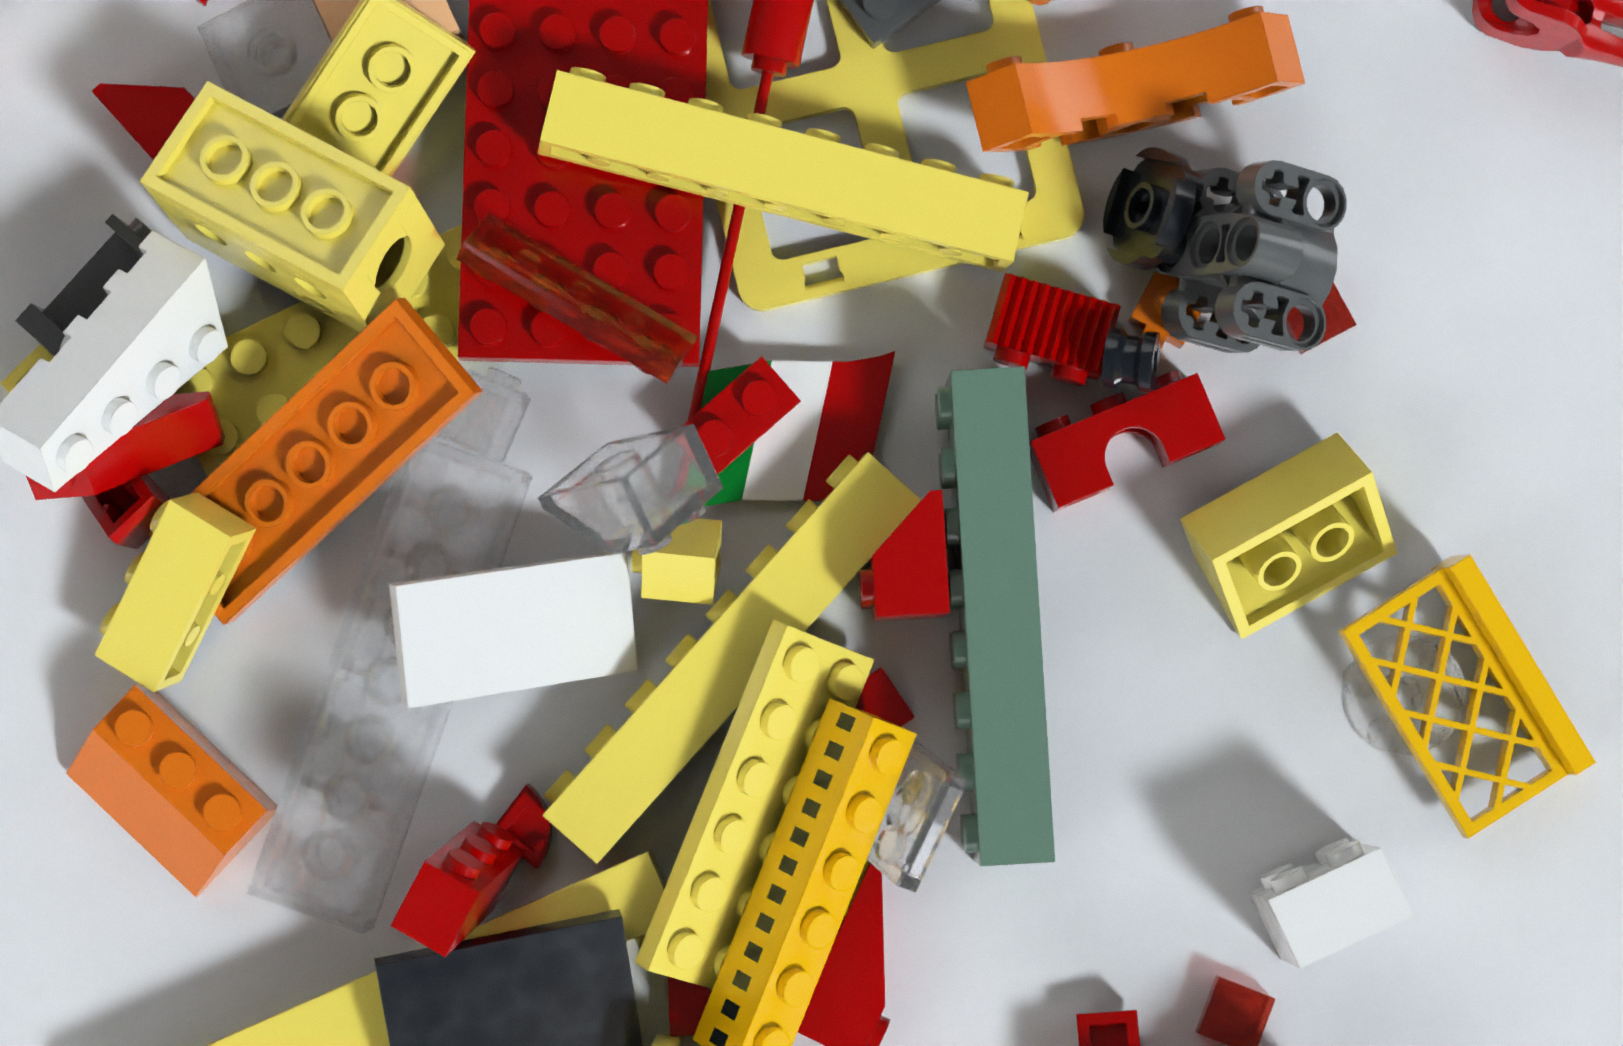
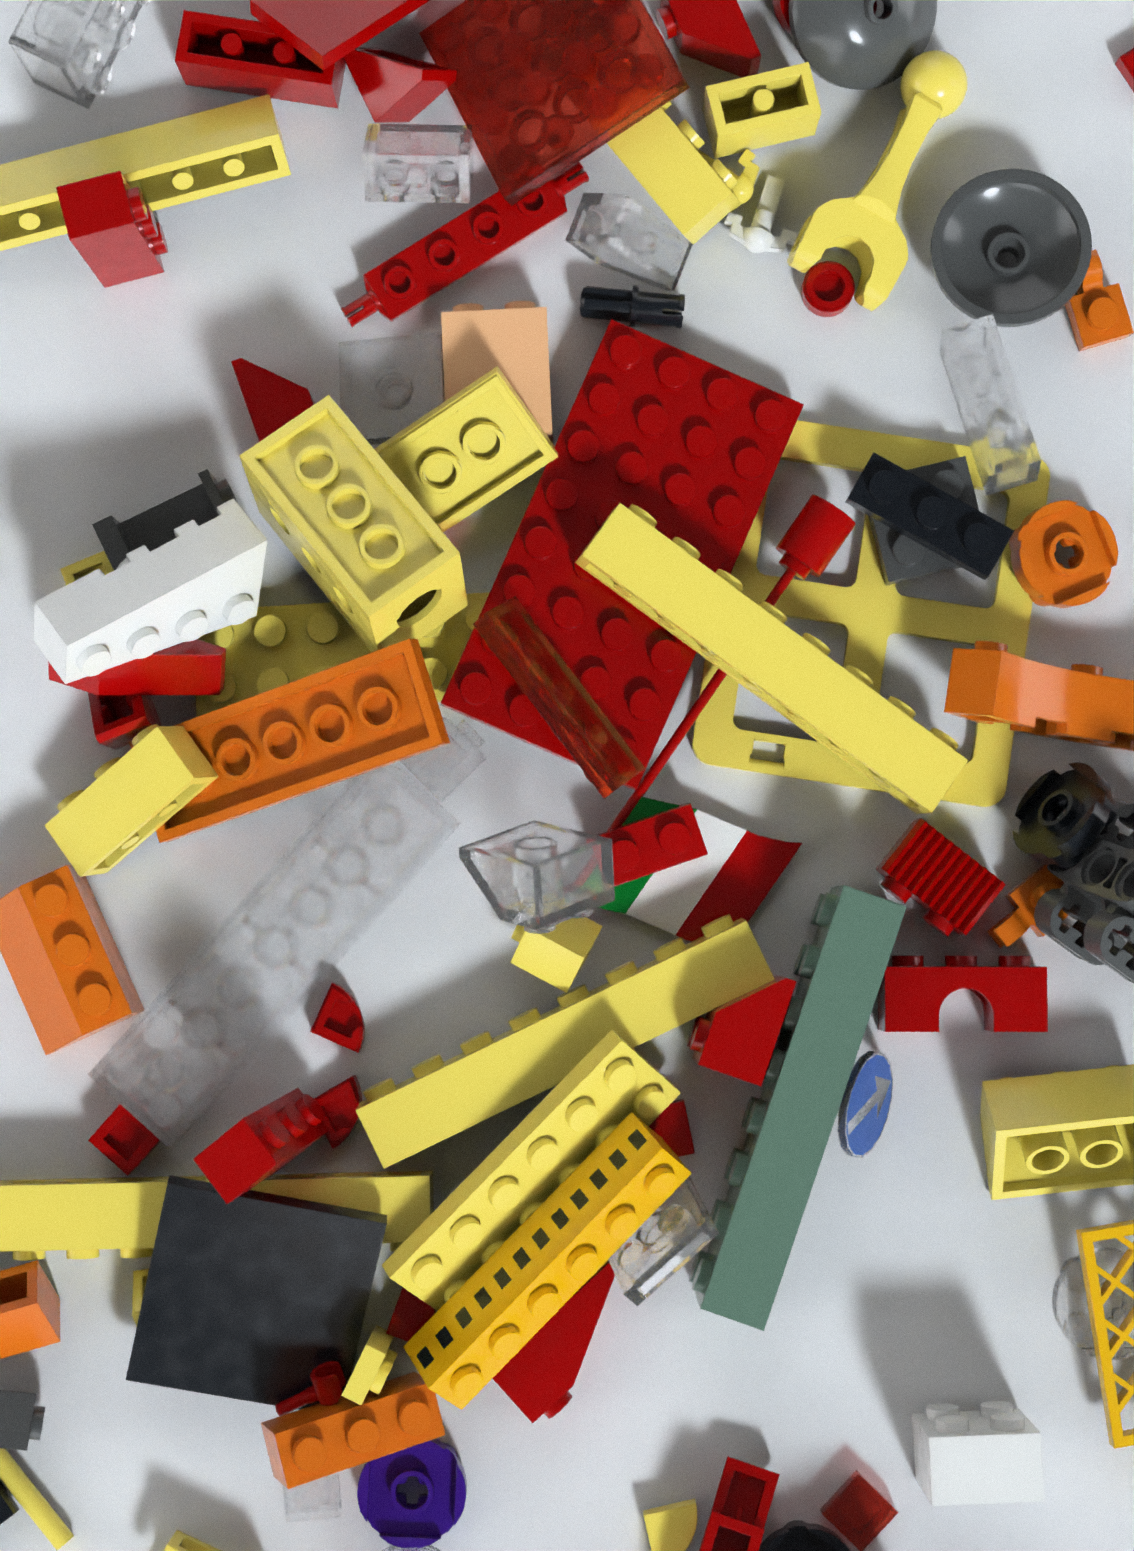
camera: 25 degrees right, 0 degrees up
(315, 948) = (124, 1140): none -> red plate
(489, 732) = (340, 1019): none -> red tile
(513, 628) = (394, 946): white tile -> none
(1068, 591) = (865, 1104): none -> piece
(1131, 359) = (996, 934): black wheel -> none

